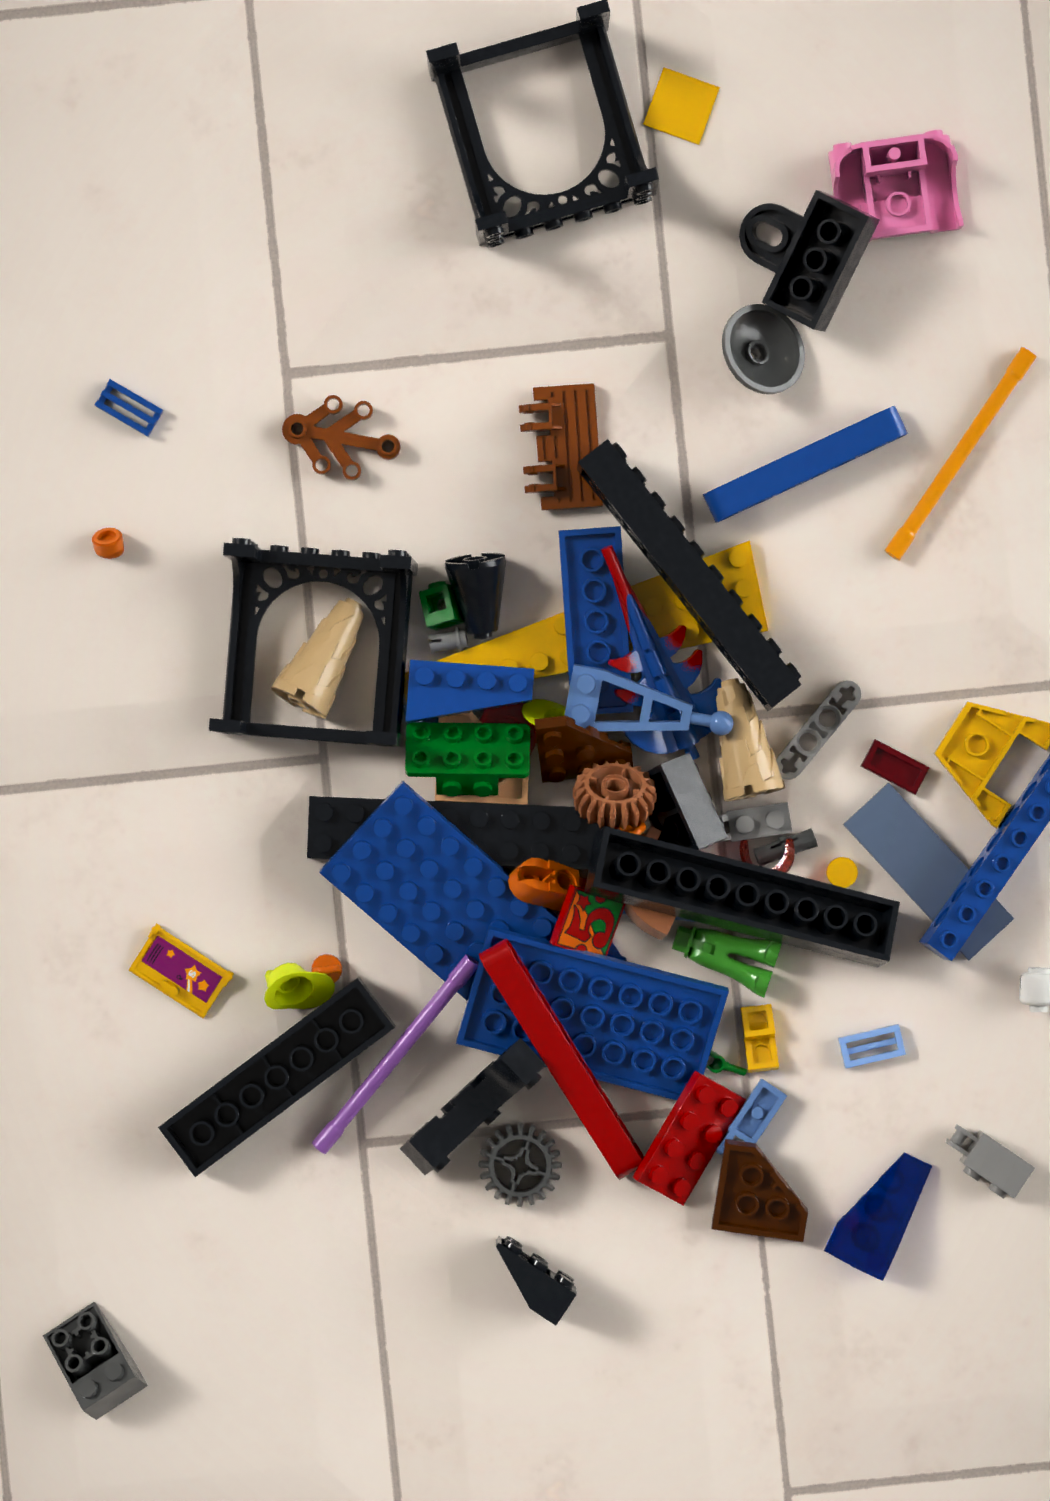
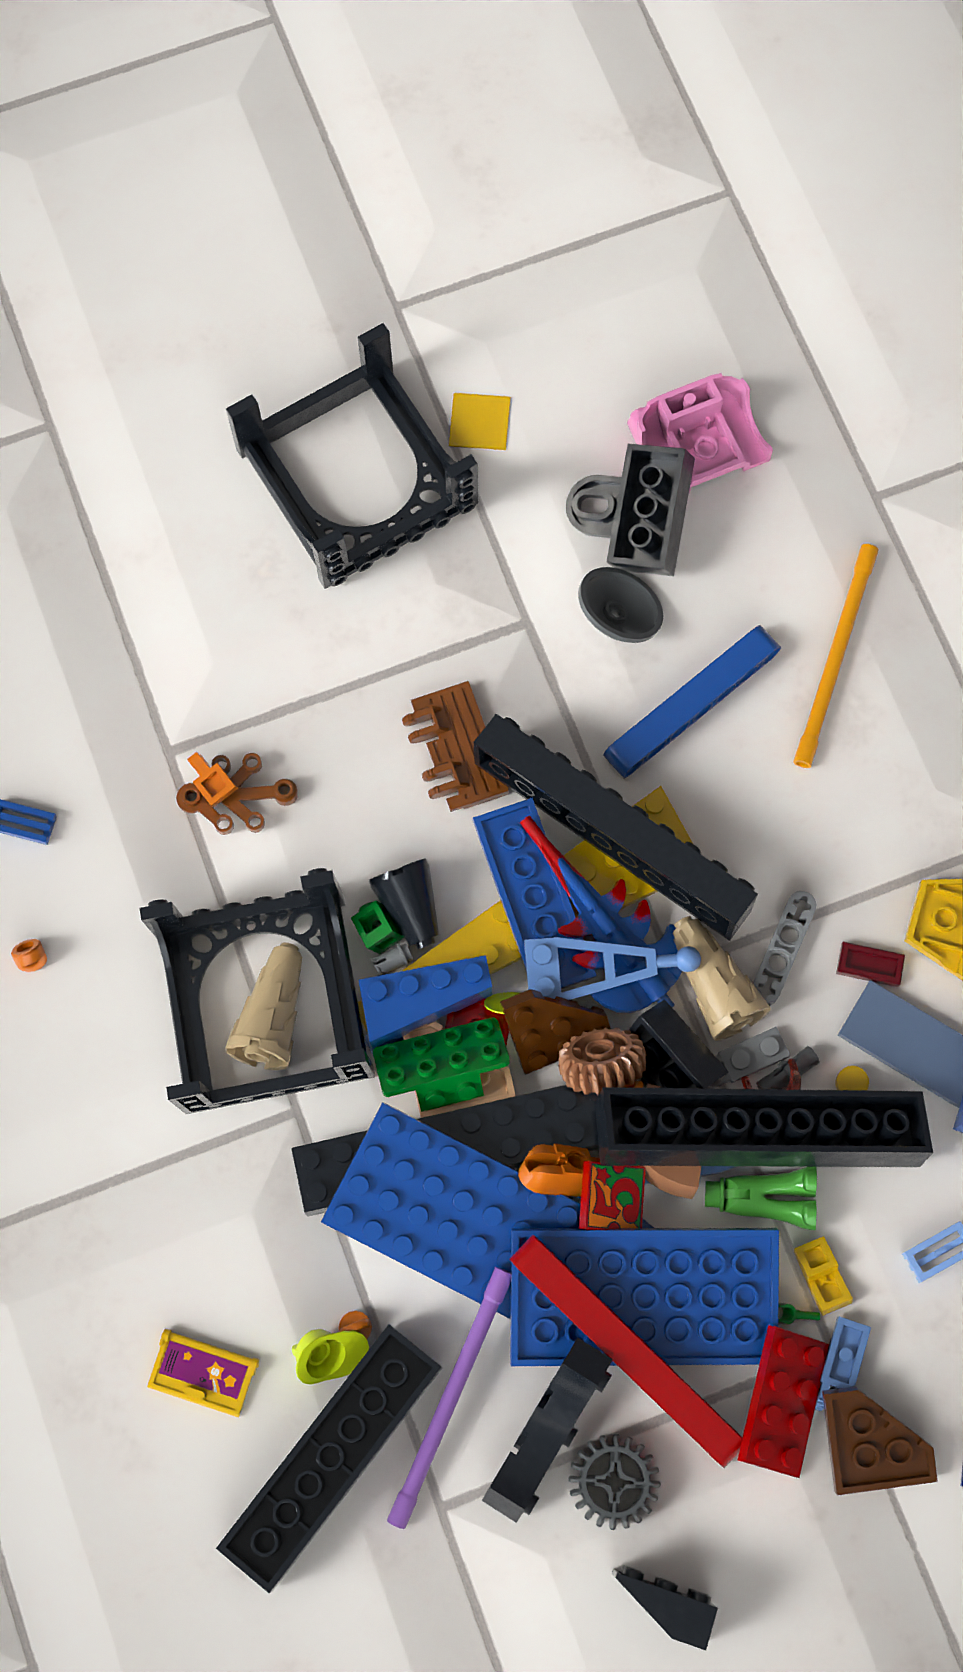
camera: 10 degrees left, 15 degrees down
(321, 423) = (213, 781): none -> orange plate

